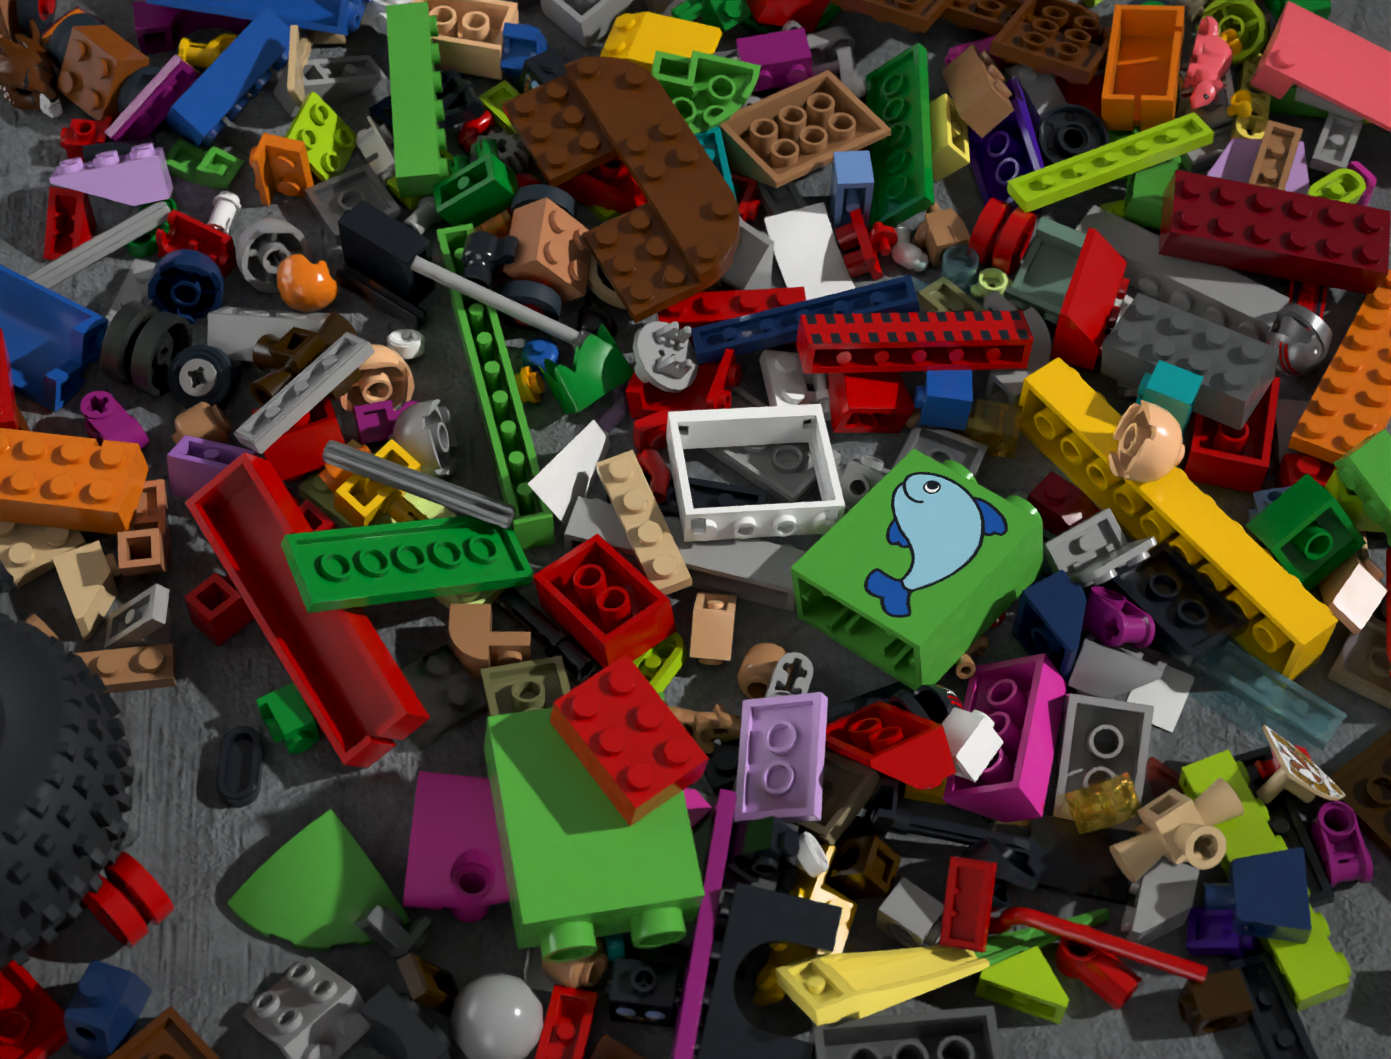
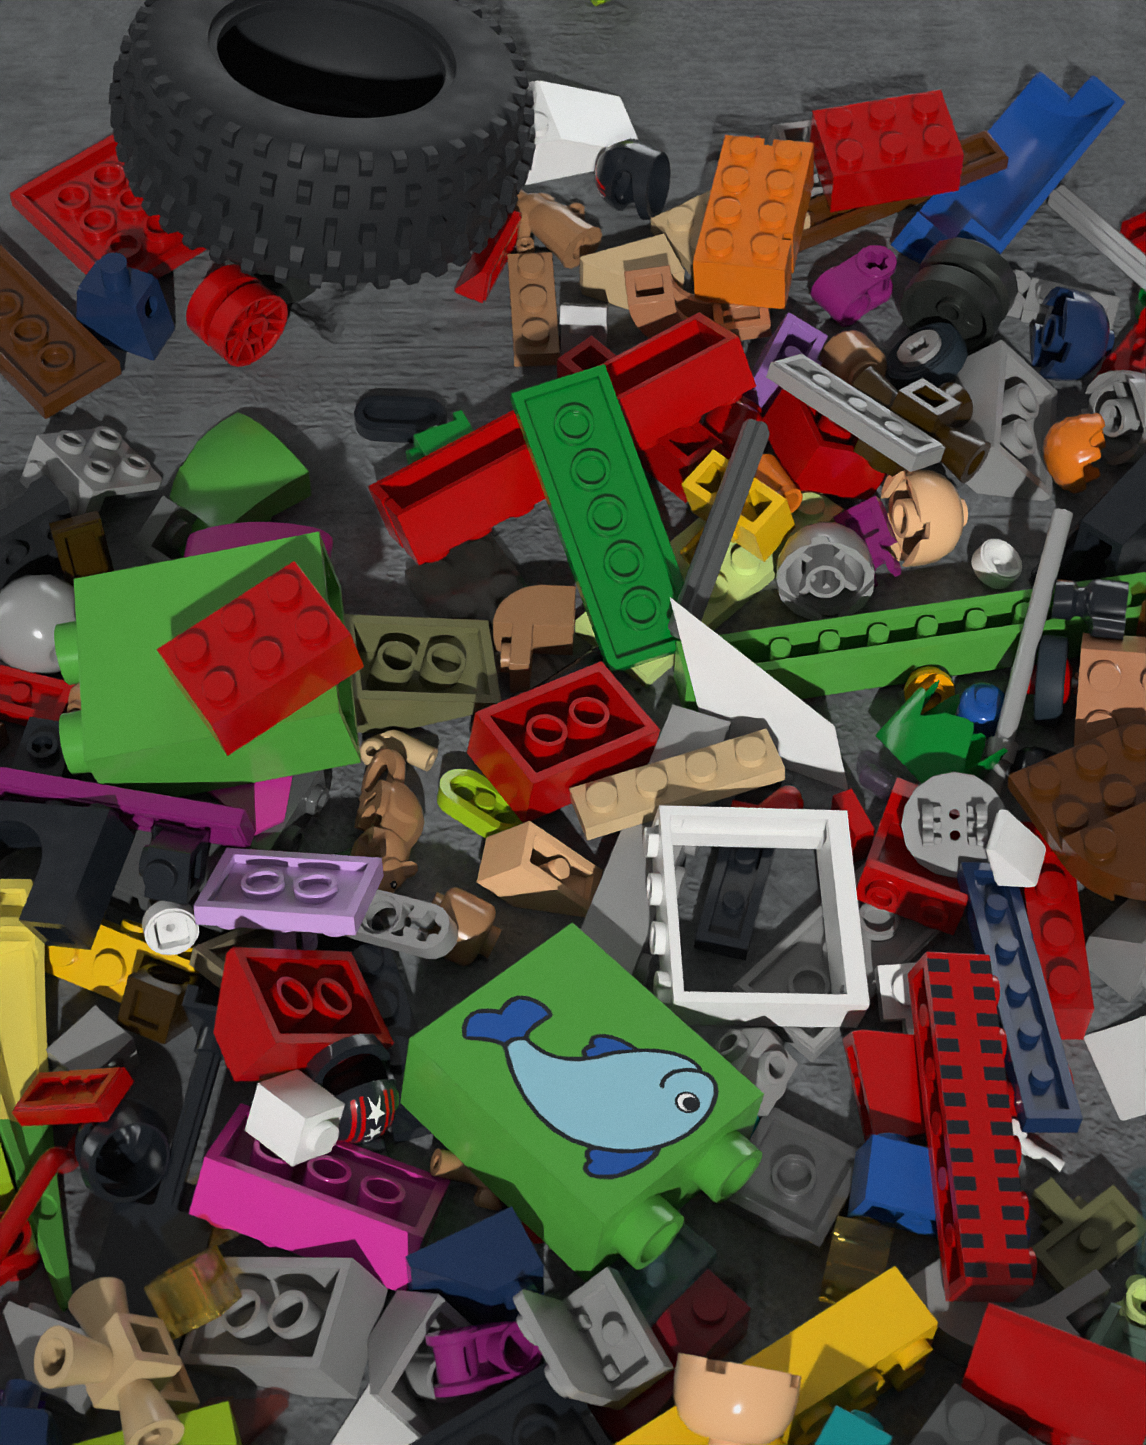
camera: 95 degrees right, 0 degrees up
(698, 317) = (1014, 852): none -> white slope

